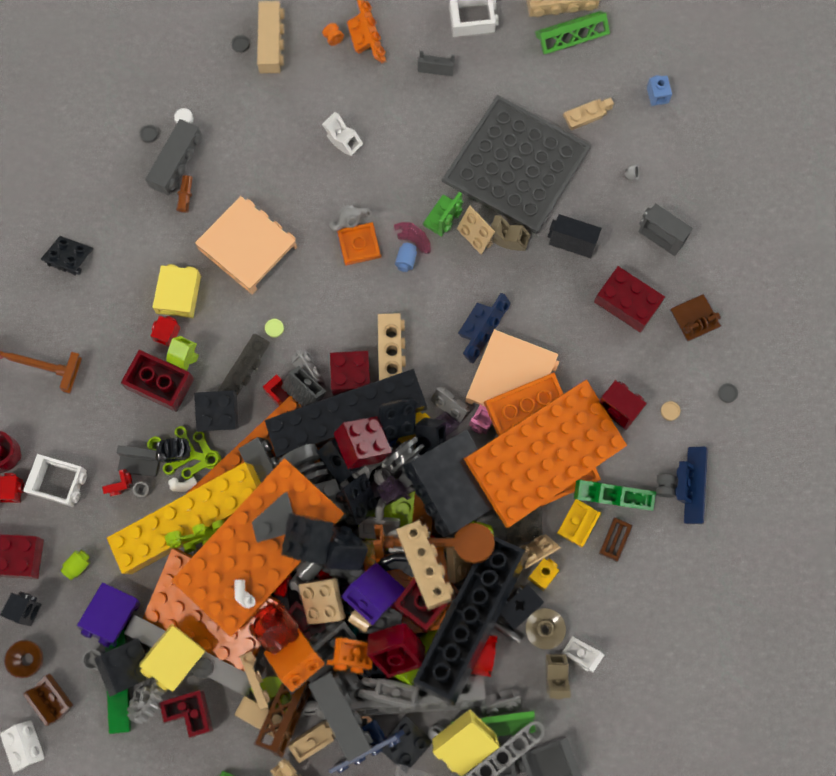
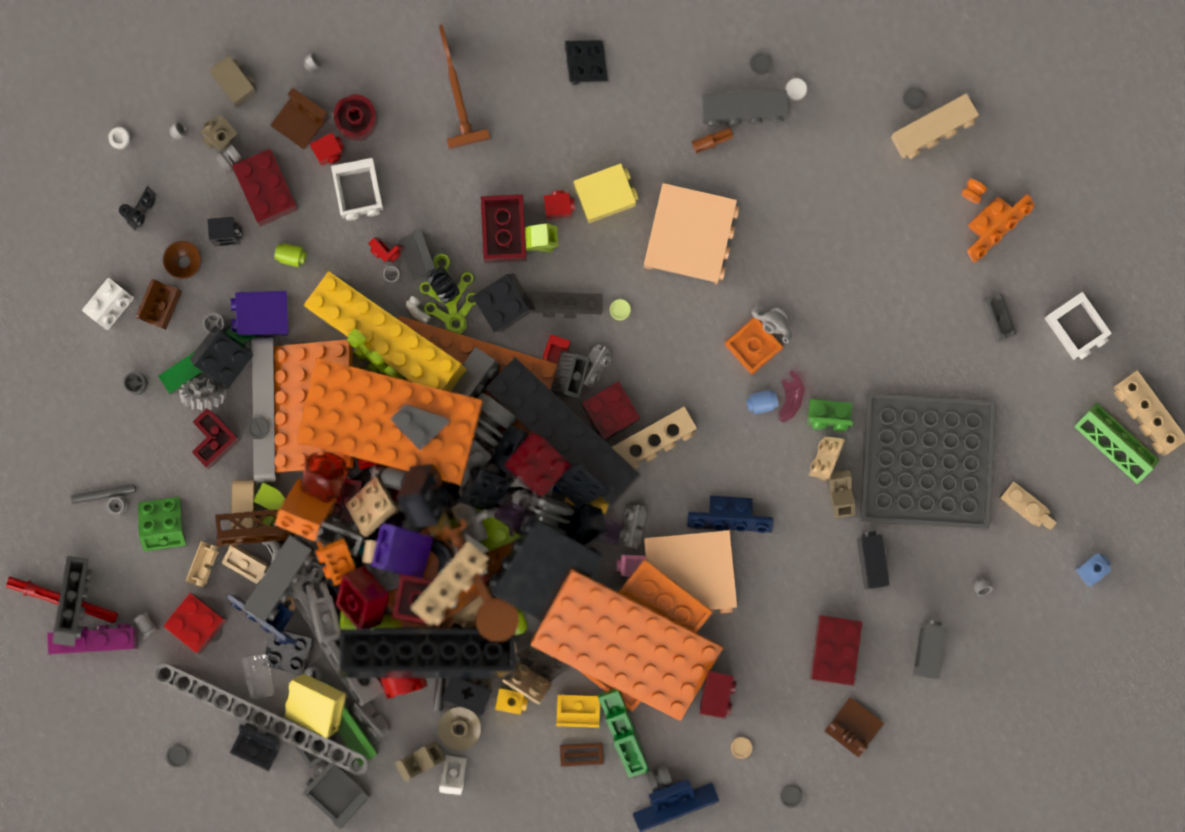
camera: 65 degrees right, 10 degrees up
(103, 754) = (134, 380): none -> dark grey wheel
(171, 658) = (251, 396): light yellow brick -> none
(243, 596) = (336, 431): white arm -> none
(254, 677) = (271, 483): tan hinge -> none
(307, 539) = (414, 464): black brick -> none
(342, 136) = (860, 265): white brick -> none

